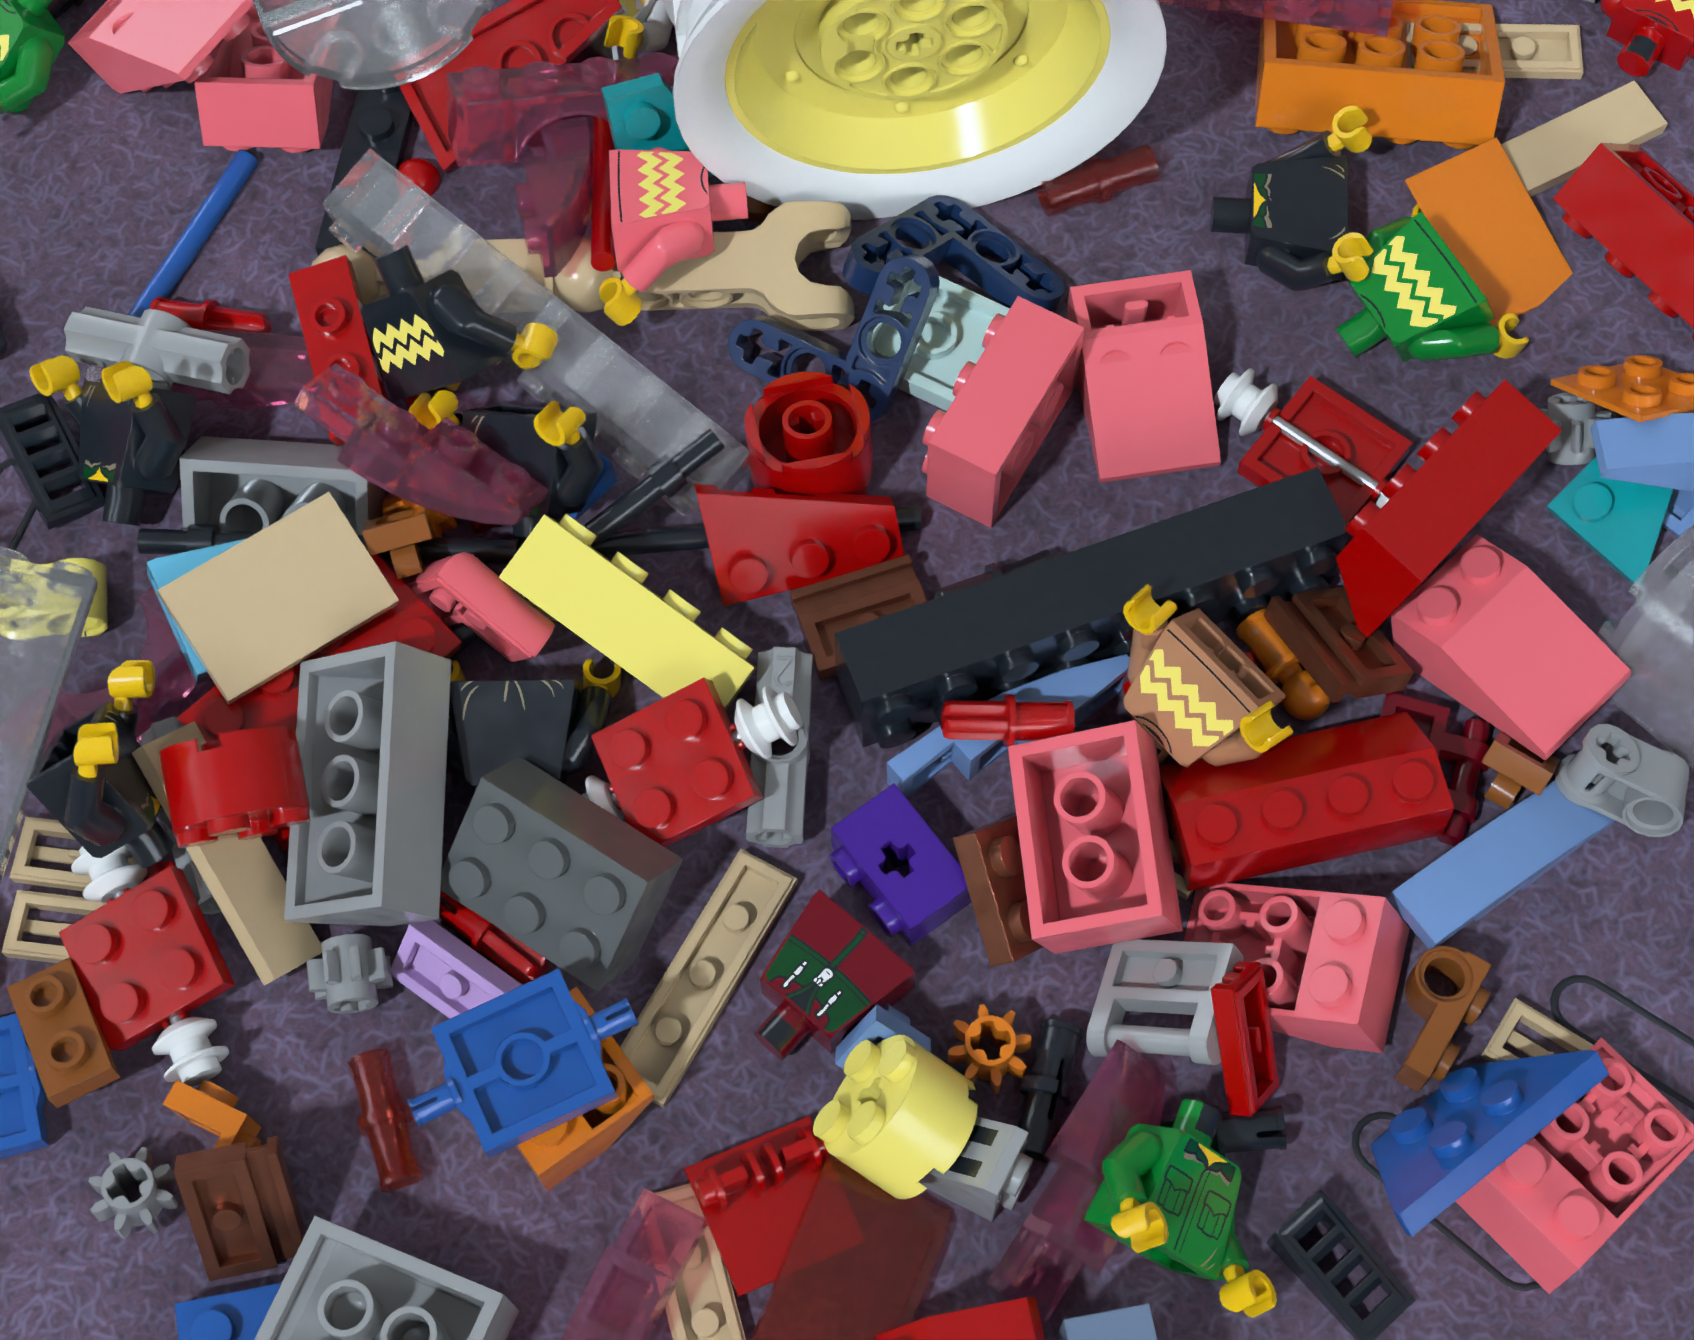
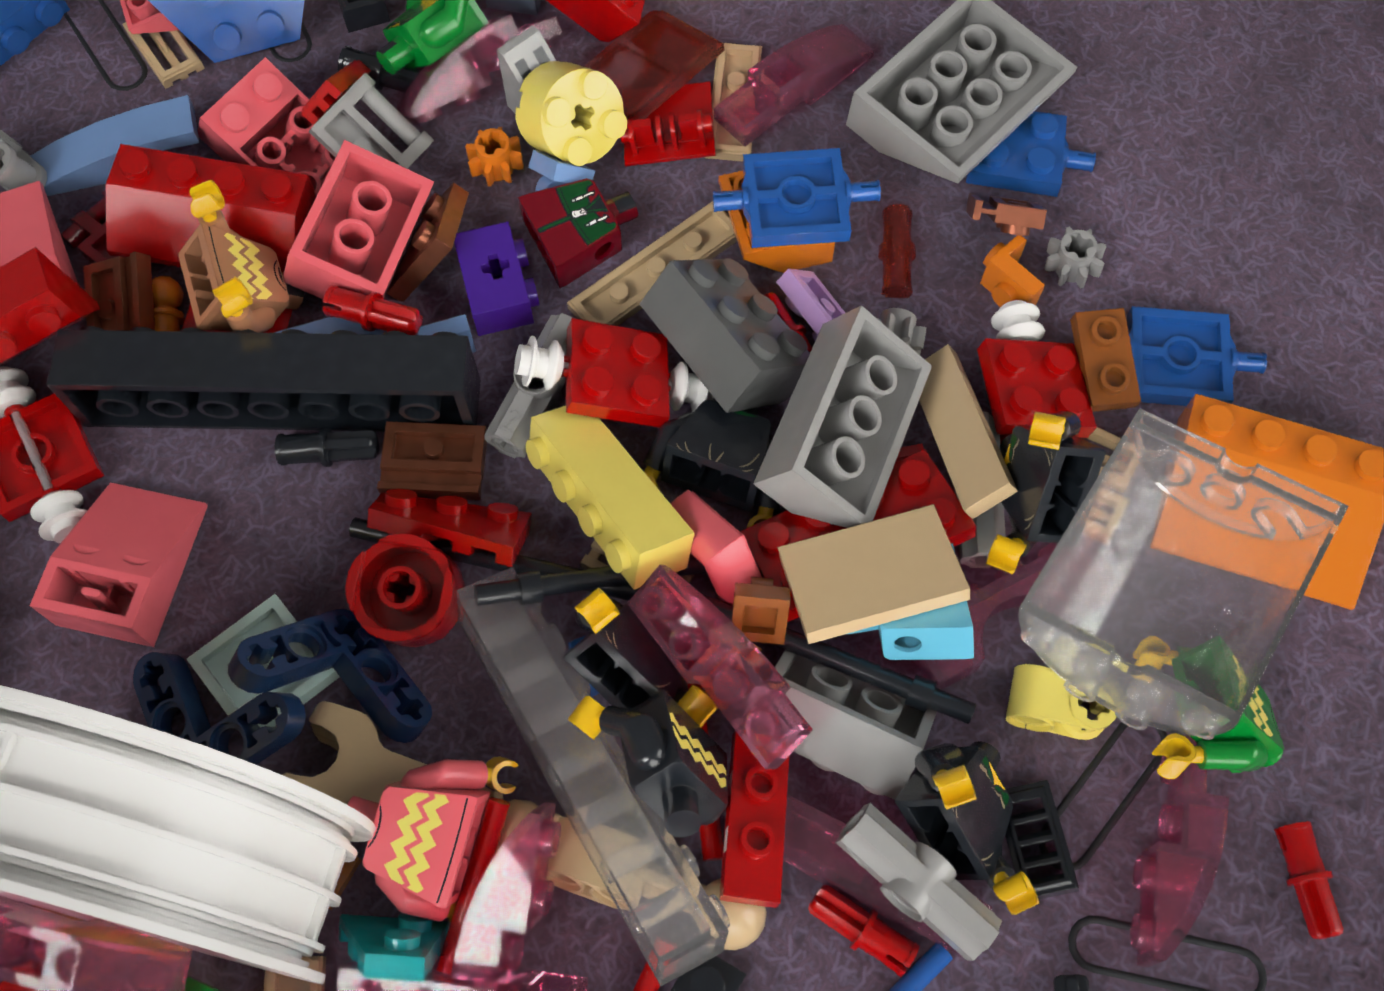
camera: 160 degrees left, 0 degrees up
(235, 784) = (944, 427): red brick -> none
(1001, 410) = (243, 554): coral brick -> none
(1048, 1085) = (481, 117): black pin -> none
(1432, 1050) = (212, 76): dark orange plate -> none
(1516, 769) = (64, 192): dark orange tile -> none

